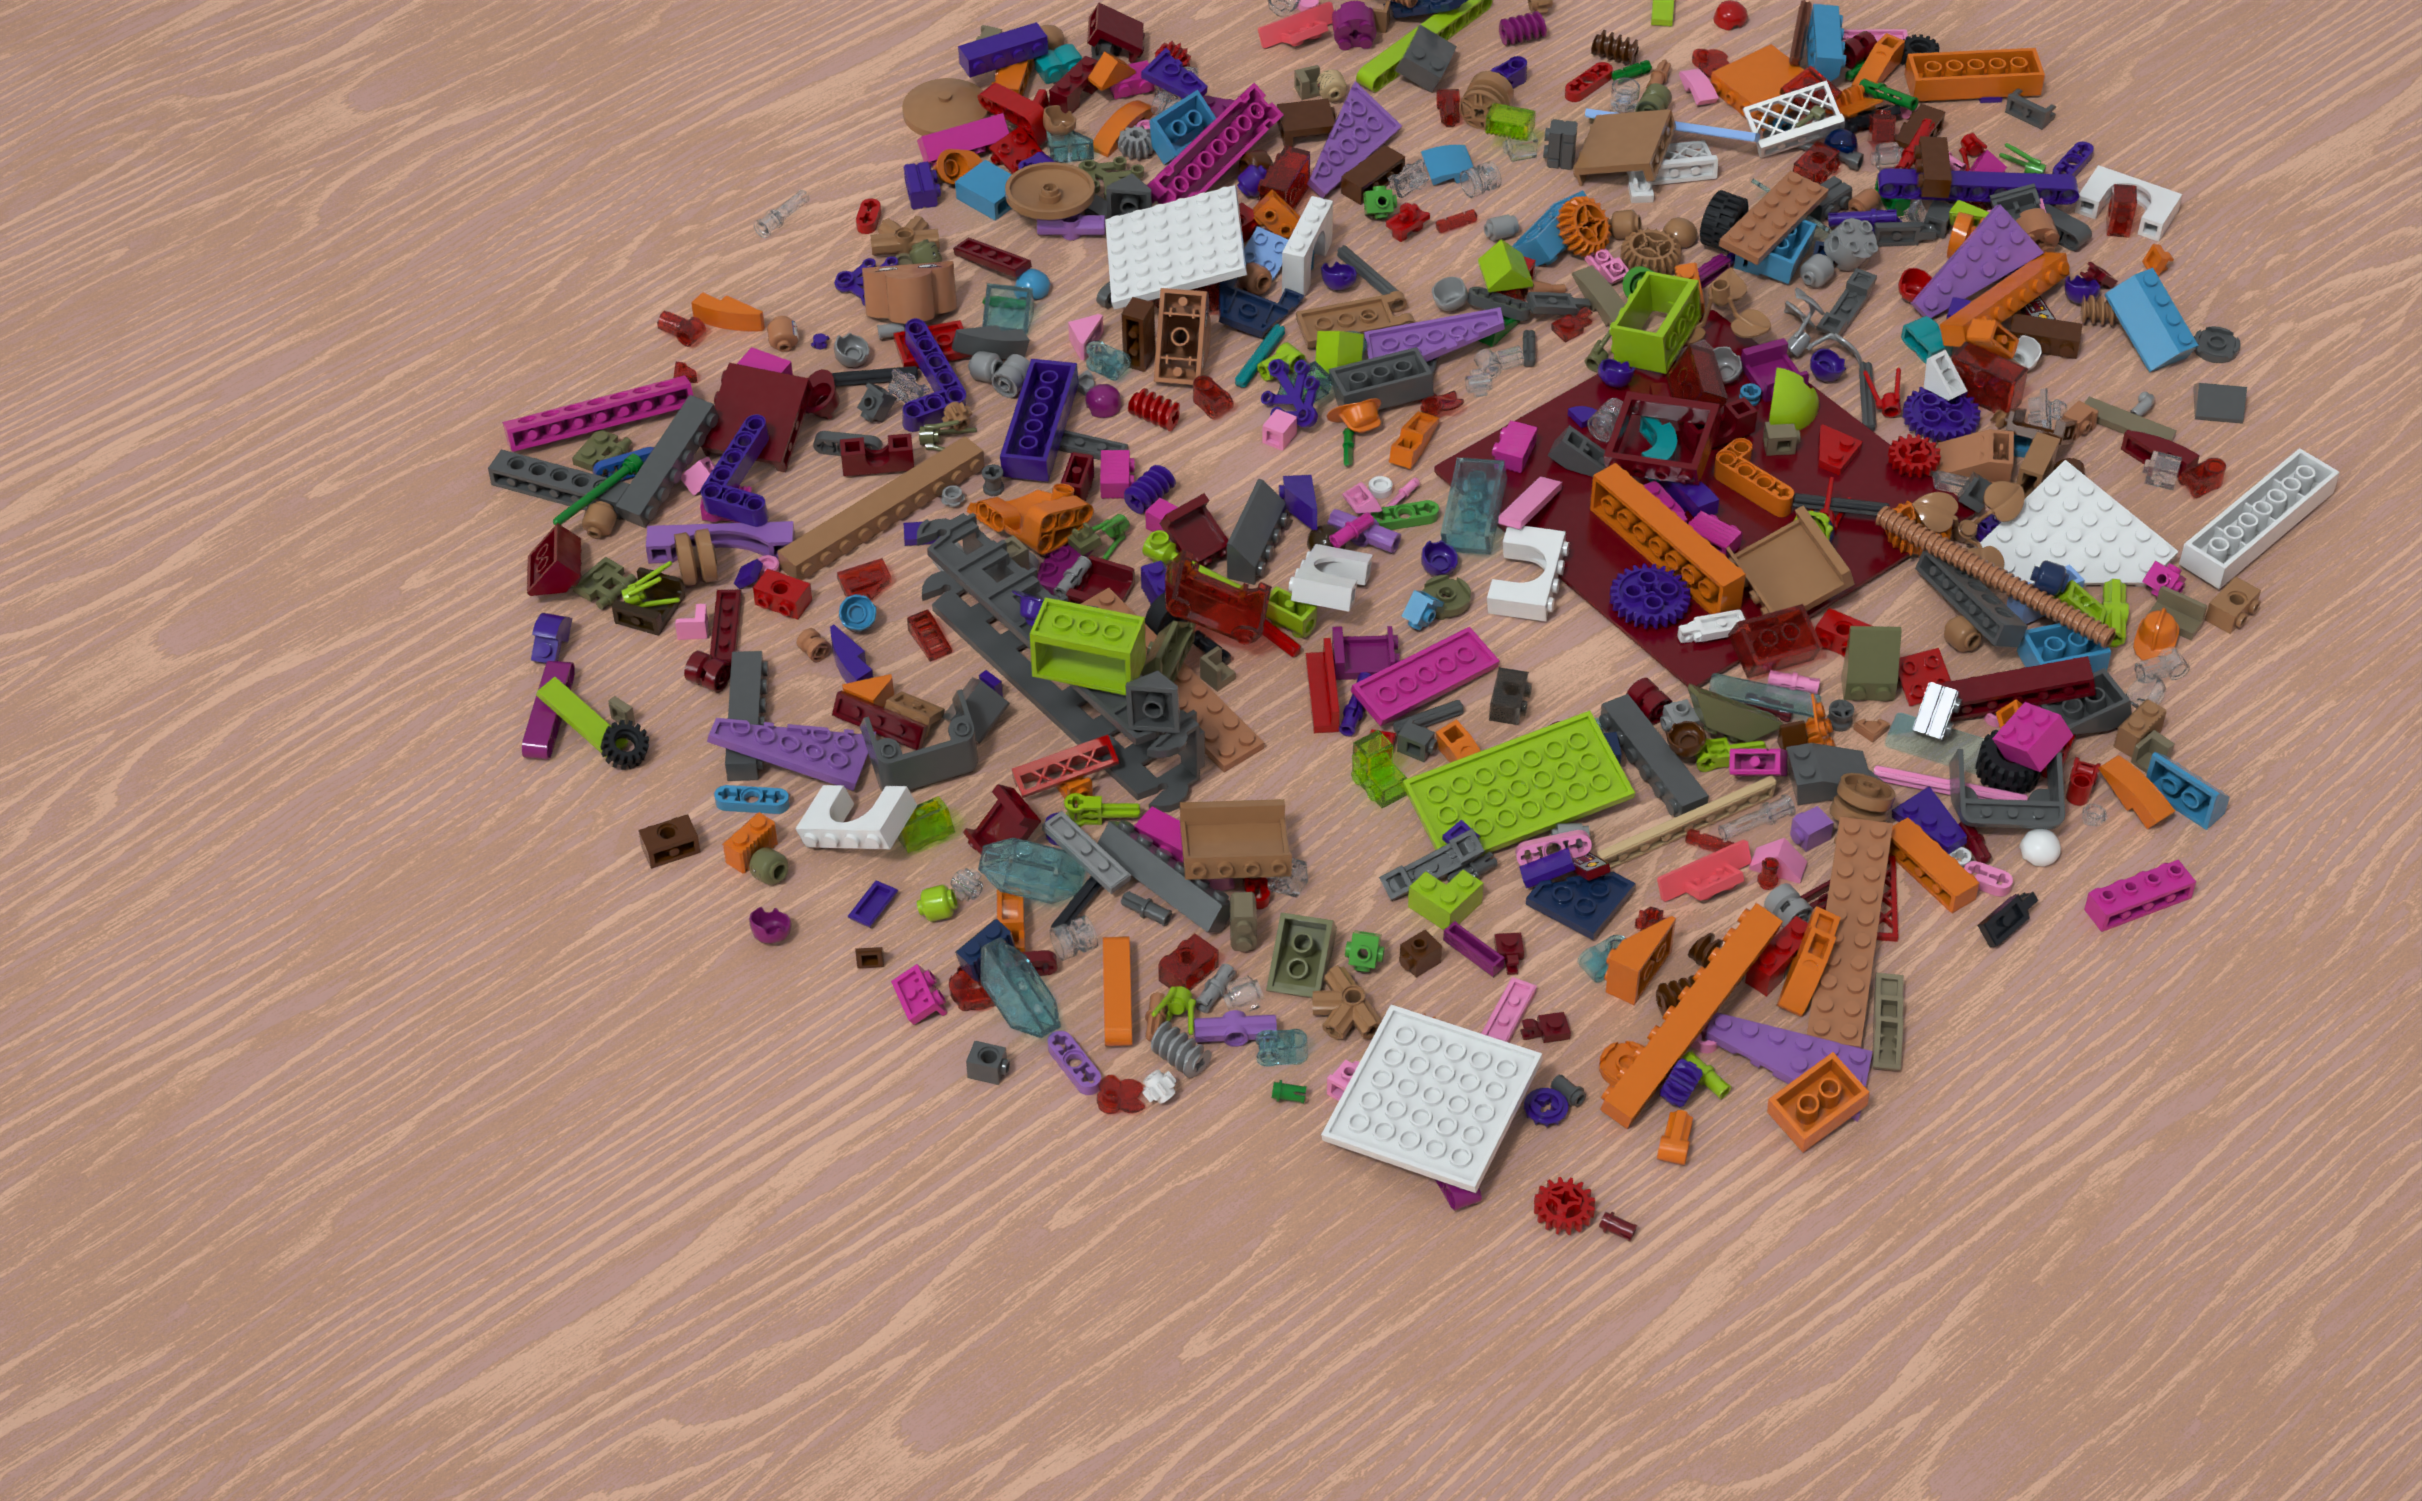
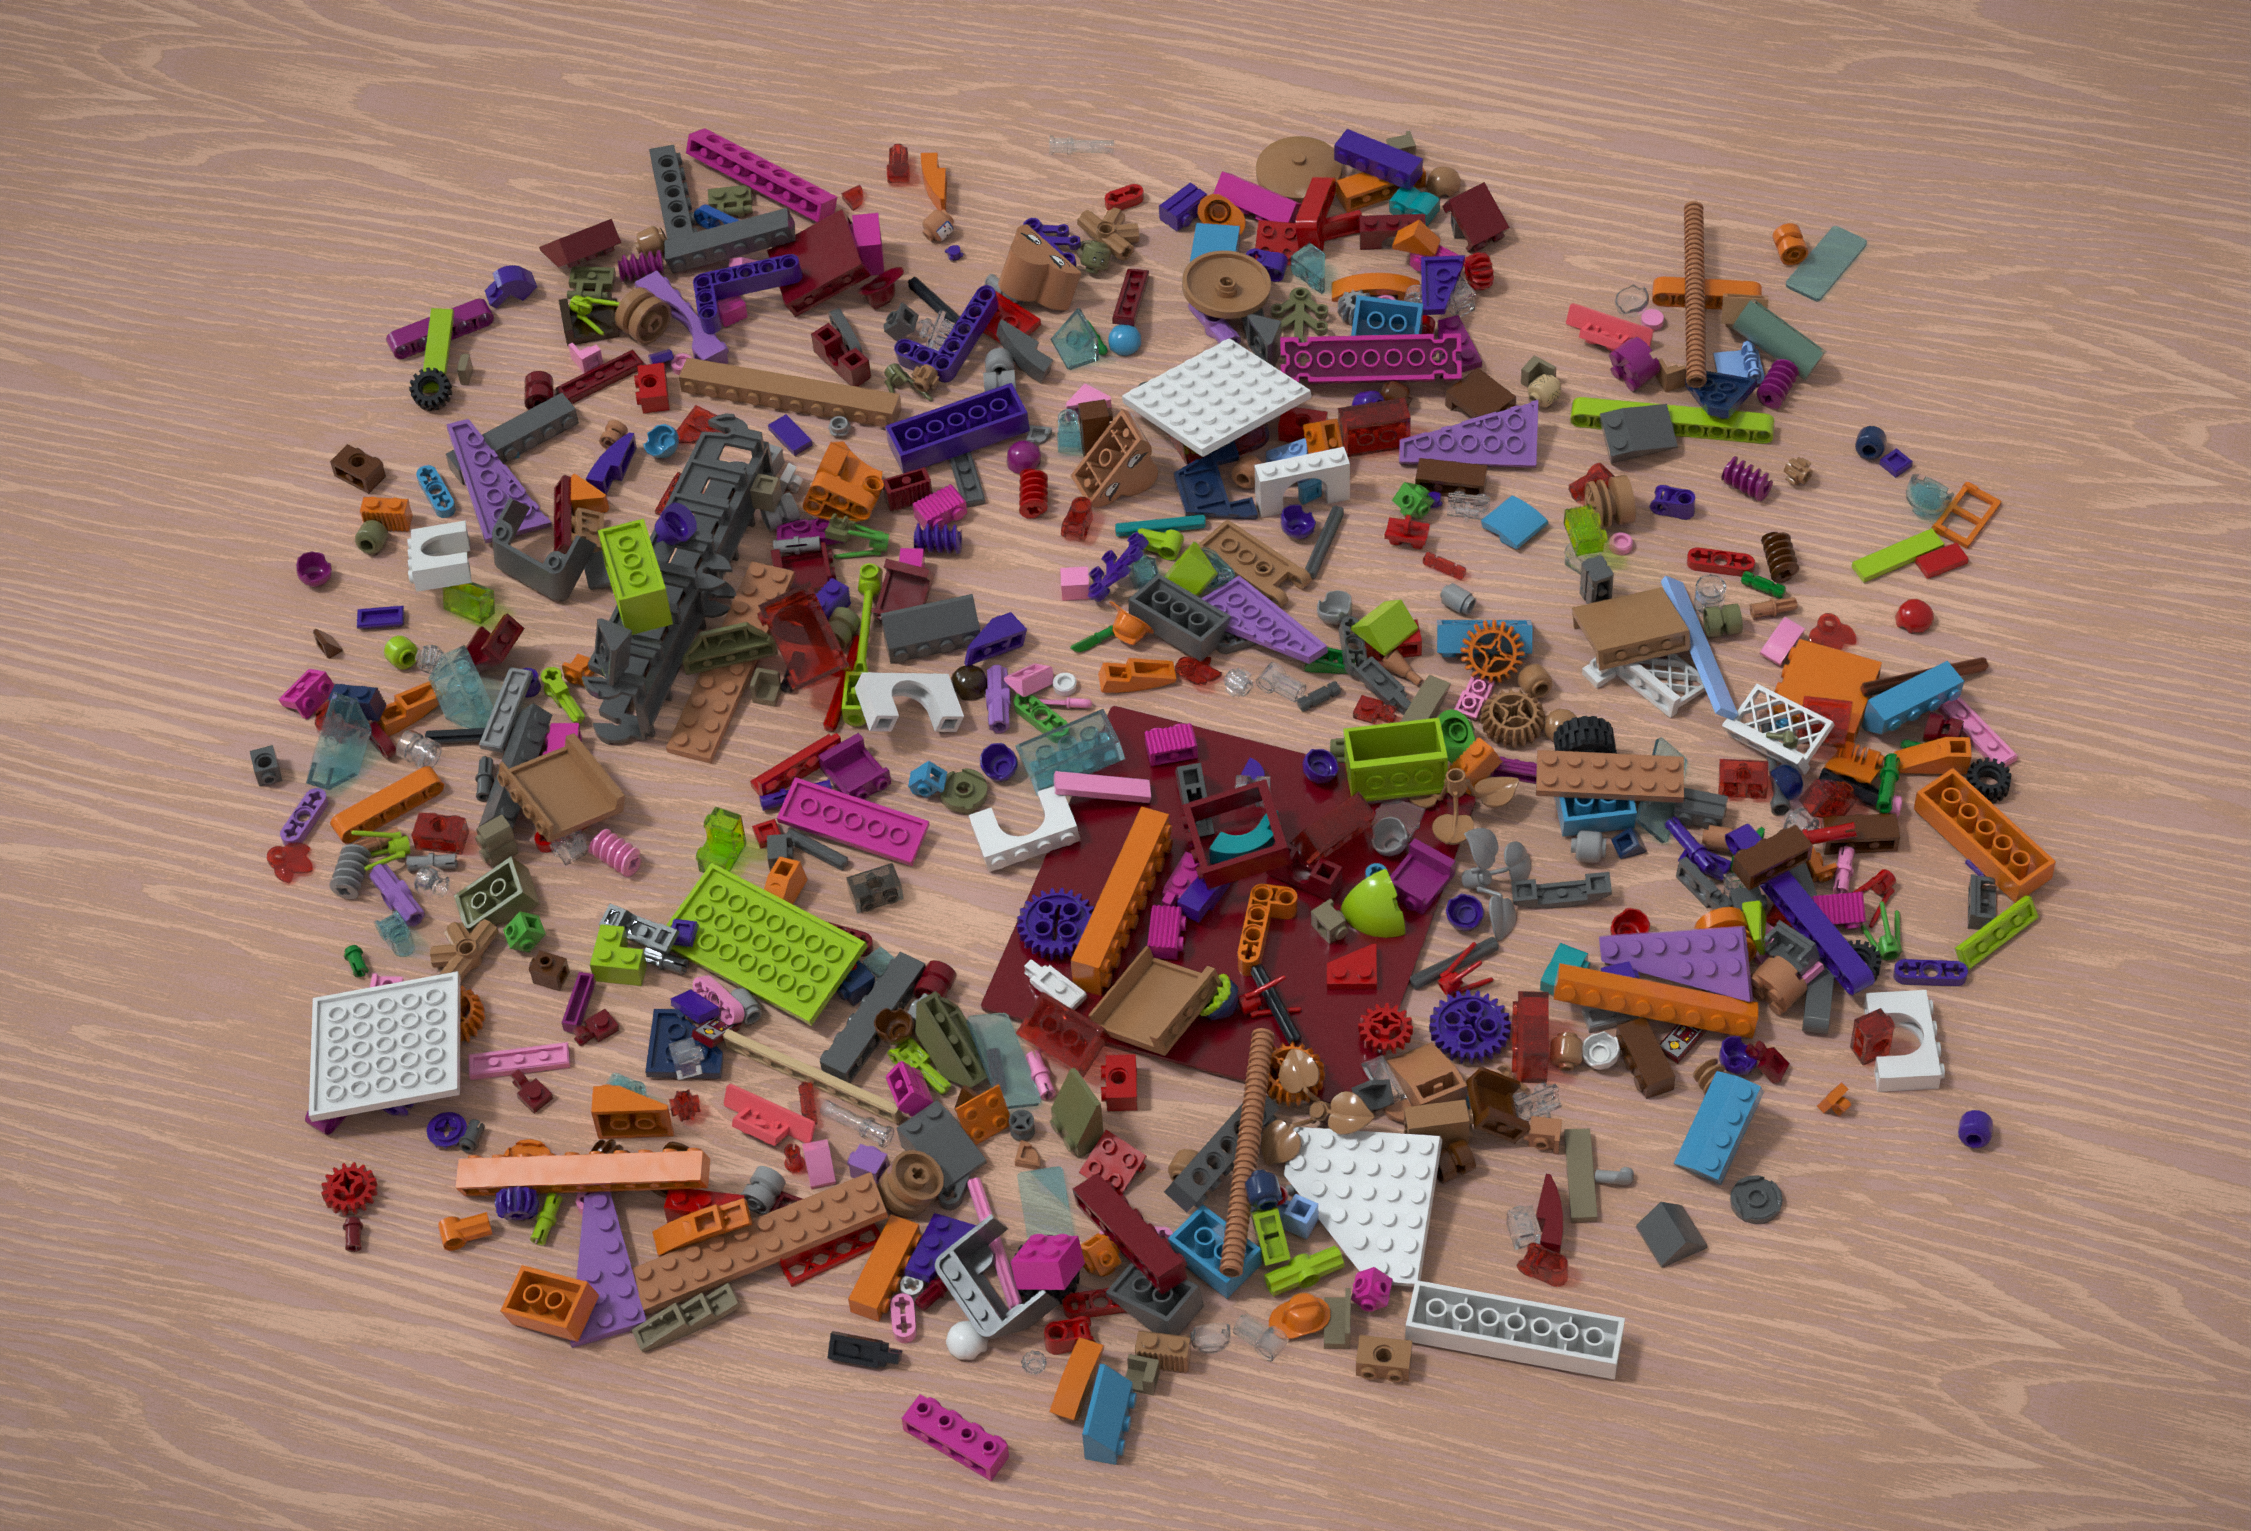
camera: 60 degrees right, 5 degrees up
(624, 537) = (640, 266): none -> magenta piece
(630, 466) = (706, 223): green piece -> none
(851, 350) = (950, 274): light grey hair -> none
(993, 485) = (872, 435): dark grey bush -> none
(1058, 122) = (1316, 241): medium nougat hair -> none
(1063, 761) = (570, 636): red fence -> none
(1159, 1086) = (306, 878): white gear -> none
(1322, 846) = (615, 852): none -> bright pink piece
(1351, 530) = (977, 687): dark pink axle -> none
(1480, 178) = (1506, 552): clear wheel -> none
(1612, 892) = (686, 1058): none -> clear brick
(1851, 244) = (1638, 852): light grey brick -> none
(1936, 712) = (1057, 1187): brick -> none
(1943, 377) = (1499, 1001): white slope -> none
(1992, 337) = (1567, 1010): orange brick -> none
(2064, 111) = (1997, 932): none -> lime tile
(2236, 205) = (1975, 1129): none -> dark purple head

